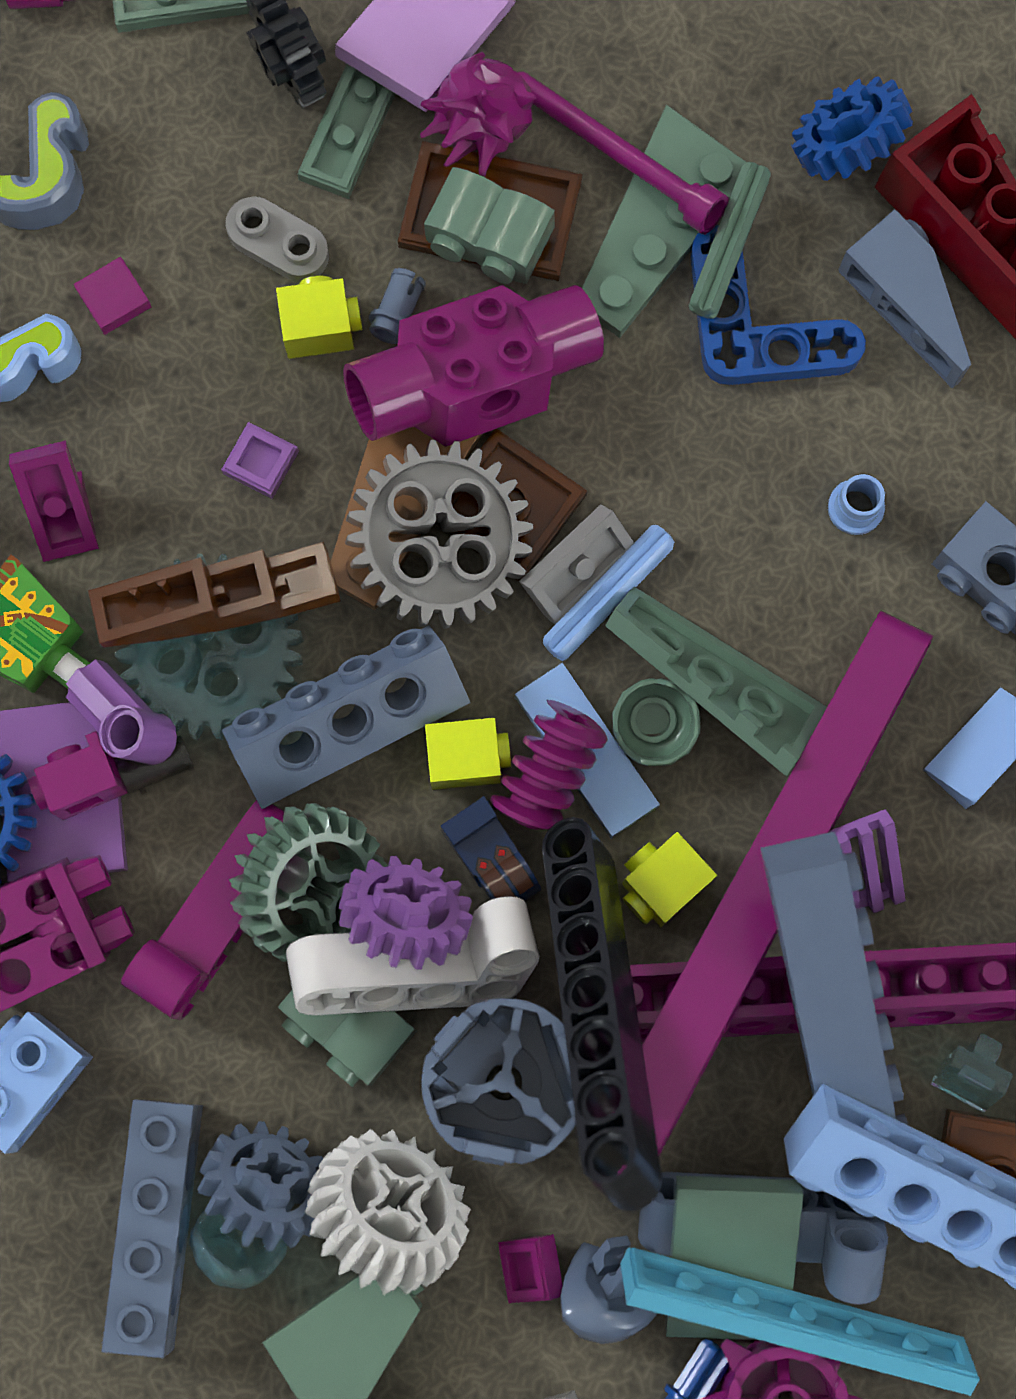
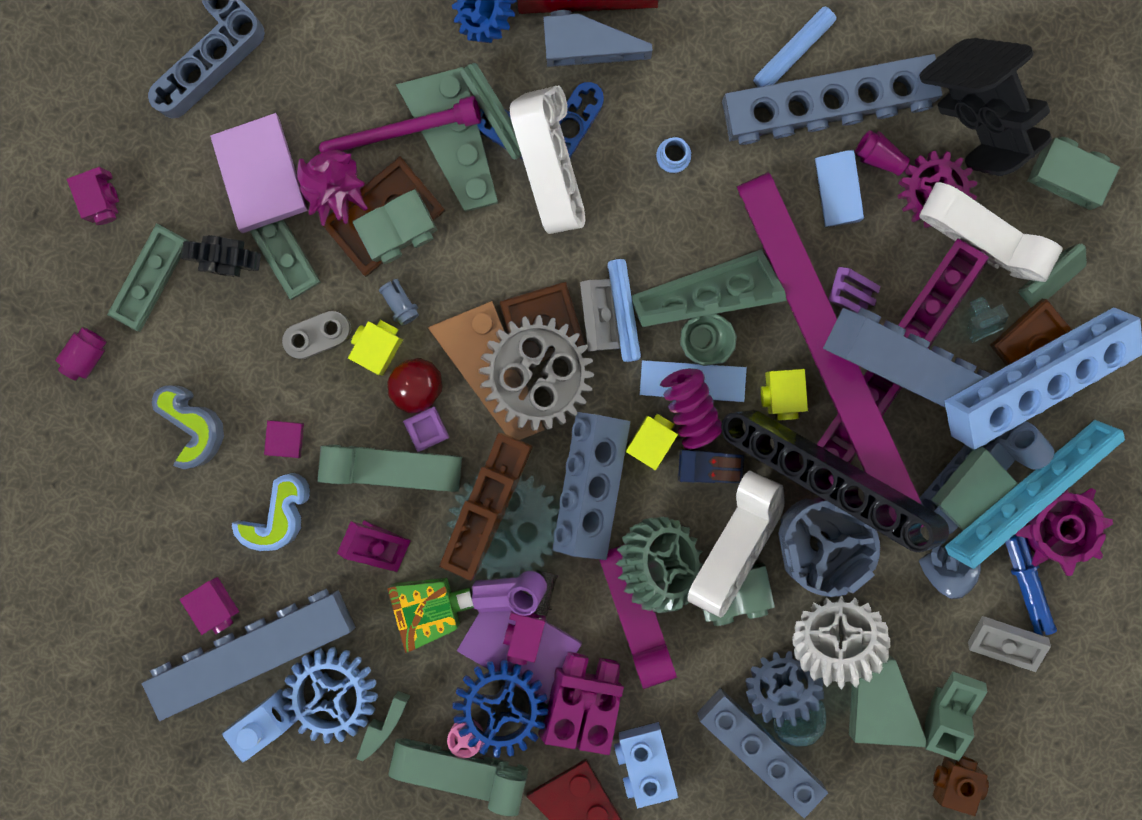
camera: 55 degrees left, 10 degrees up
(172, 443) = (389, 468): none -> sand green beam
(305, 403) = (414, 385): none -> dark red hair
(405, 912) = (714, 532): medium lavender gear -> none
(473, 364) = (463, 289): magenta brick -> none
(531, 1268) = (913, 594): magenta tile -> none
(722, 344) = (546, 158): none -> white beam

